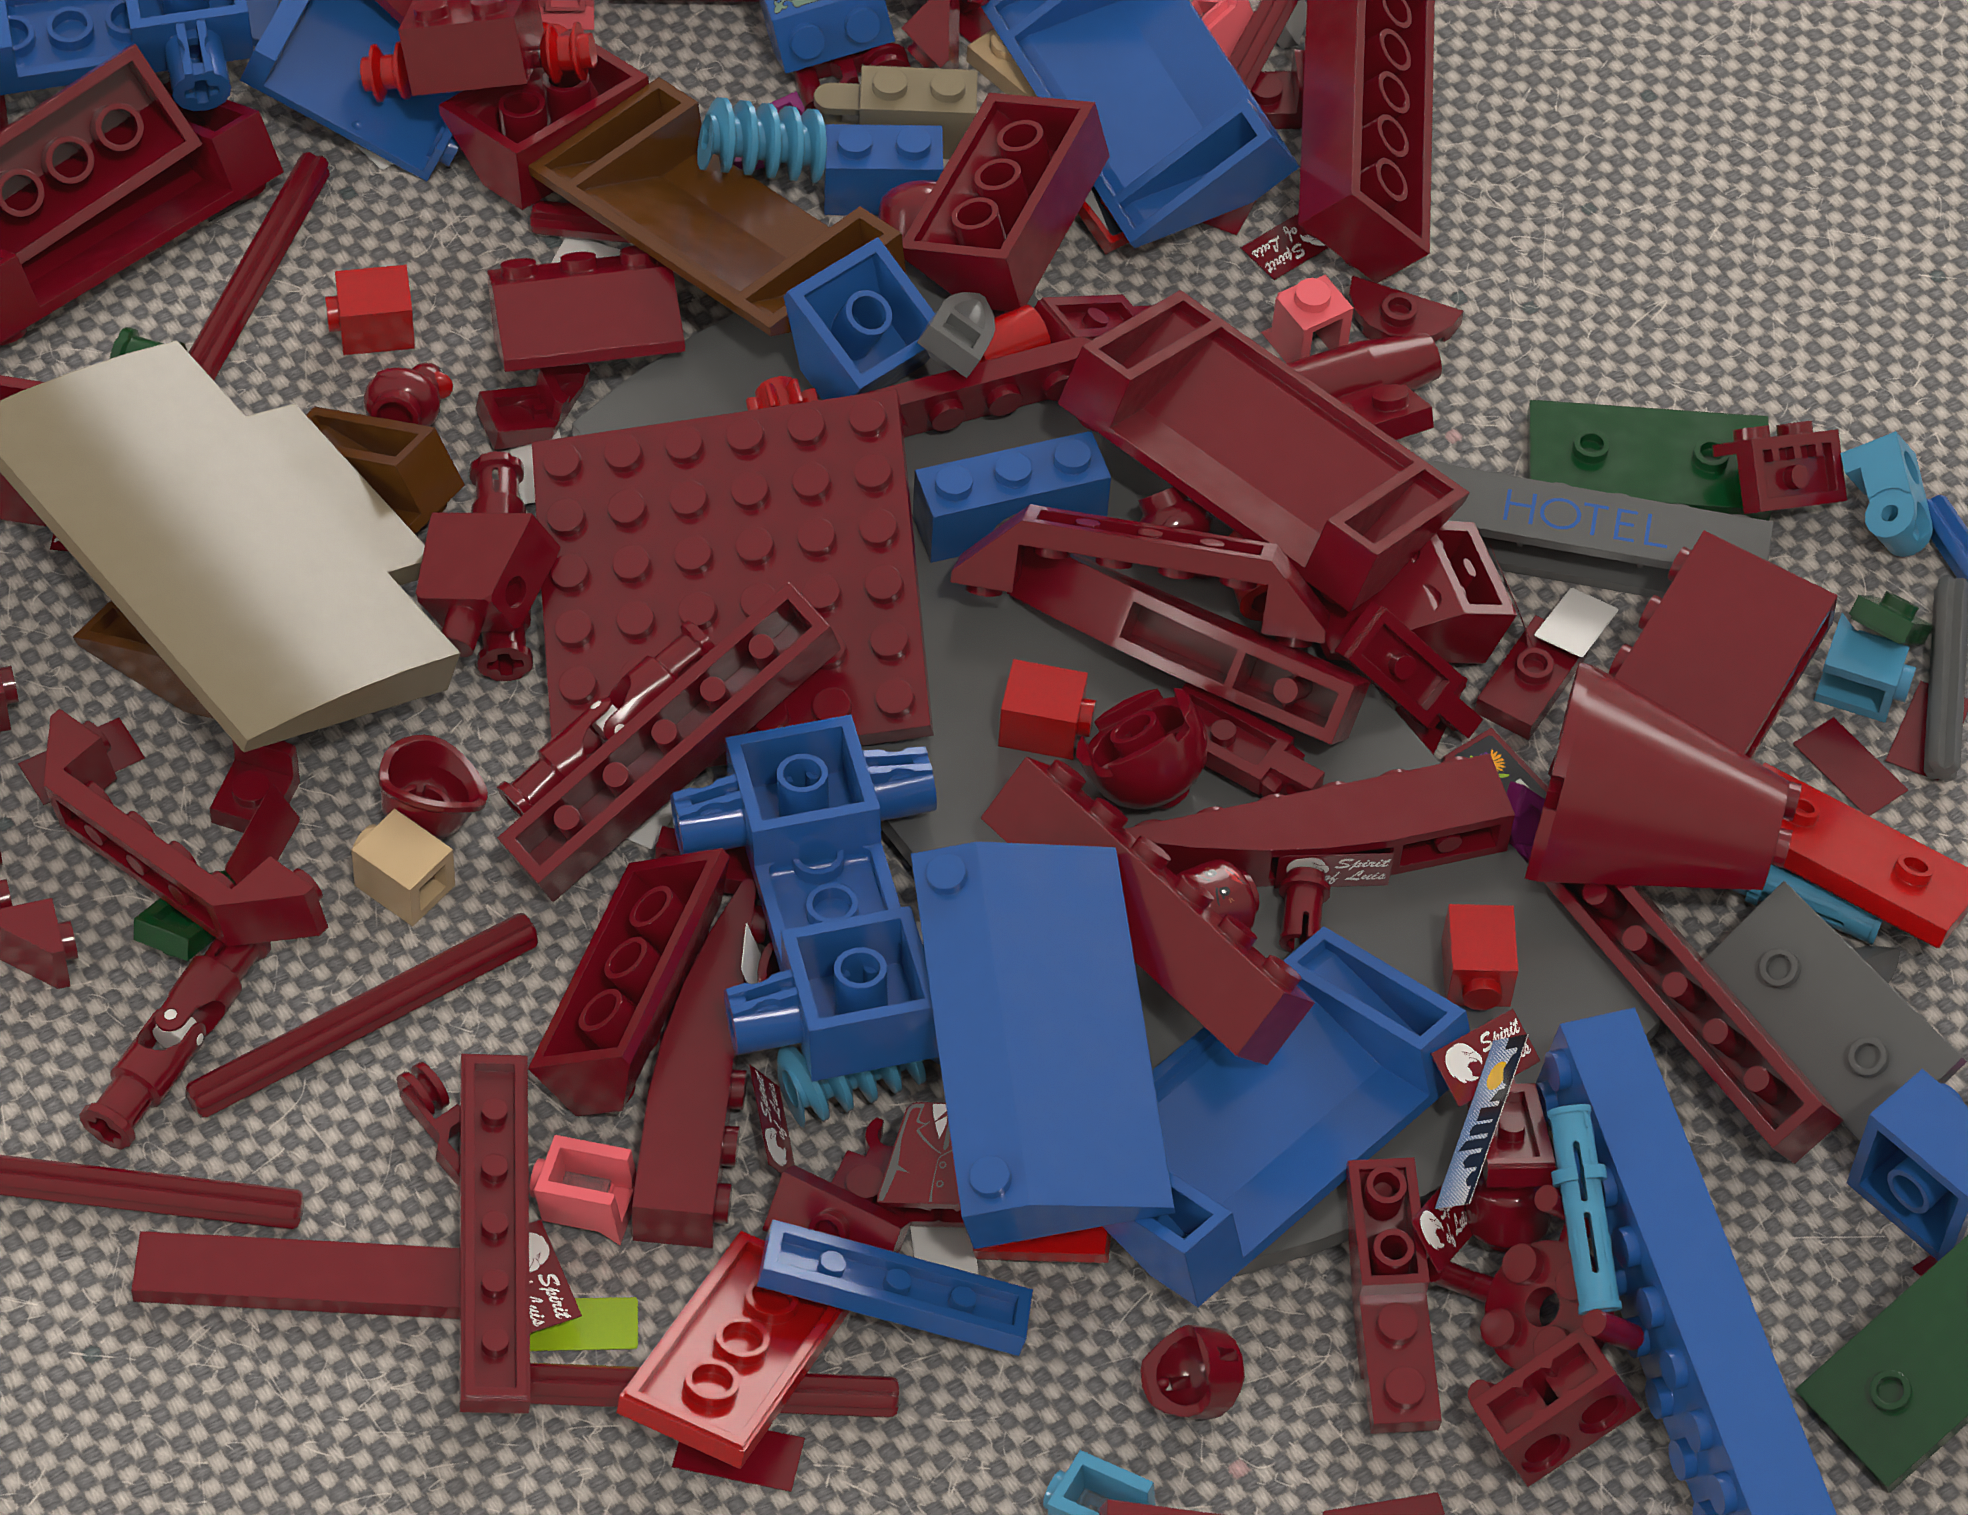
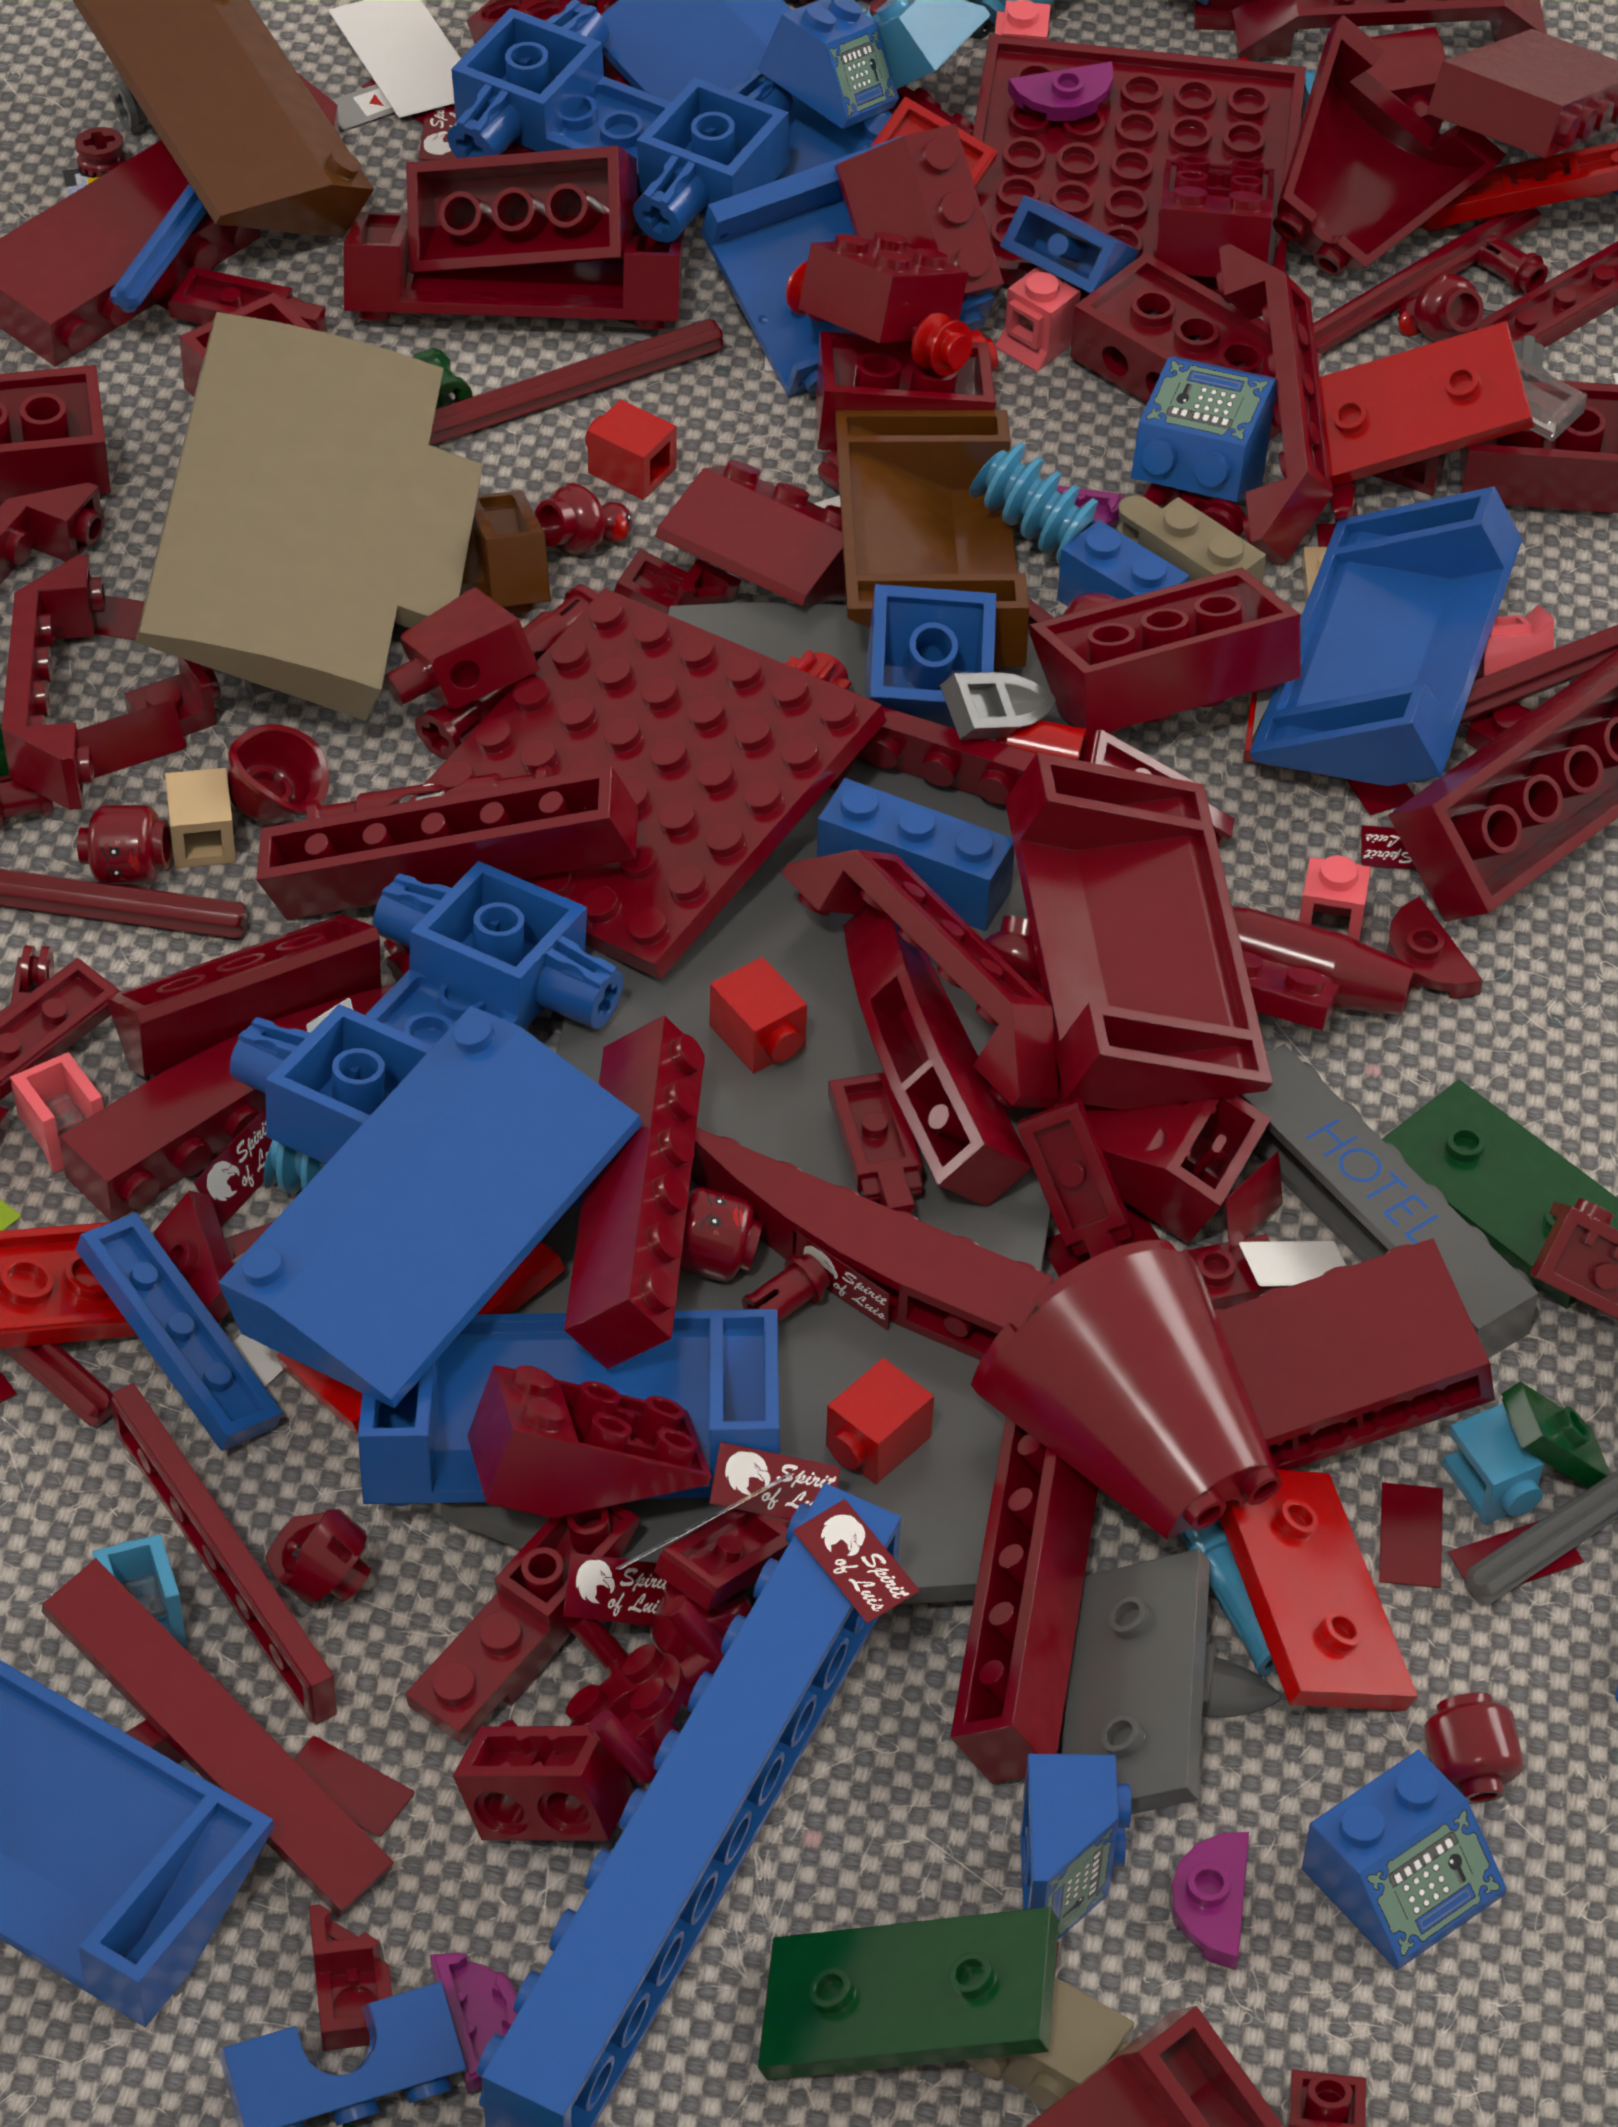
camera: 45 degrees right, 5 degrees down
(376, 933) = (125, 844): none -> dark red head
(1118, 1428) = (224, 1555): none -> dark red tile
(1146, 750) = (787, 1093): dark red cylinder -> none
(1330, 1138) = (578, 1446): none -> dark red slope
(1570, 1129) = (705, 1609): dark azure pin -> none
(1641, 1064) = (856, 1561): none -> dark red sticker

